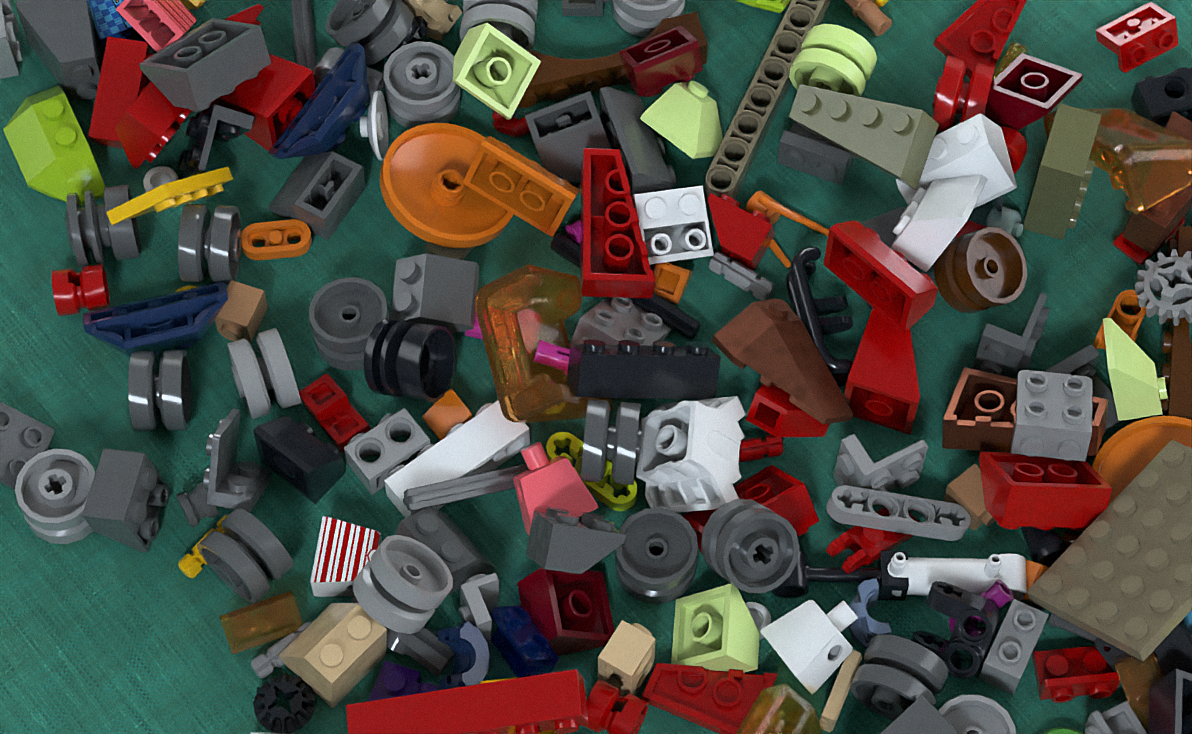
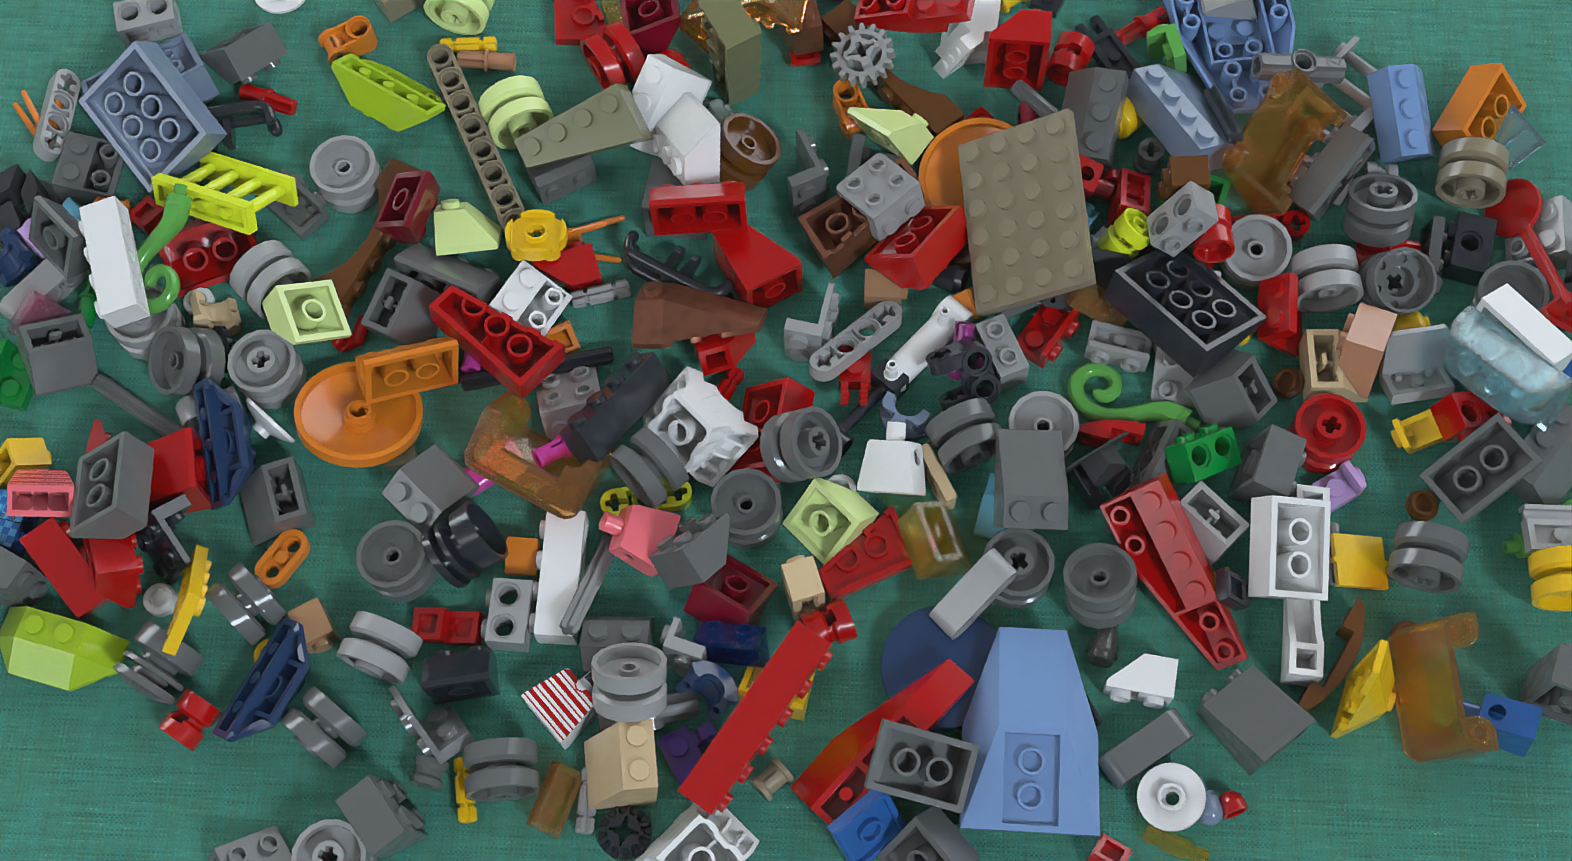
camera: 45 degrees left, 5 degrees up
(726, 190) = (544, 247): none -> yellow plate

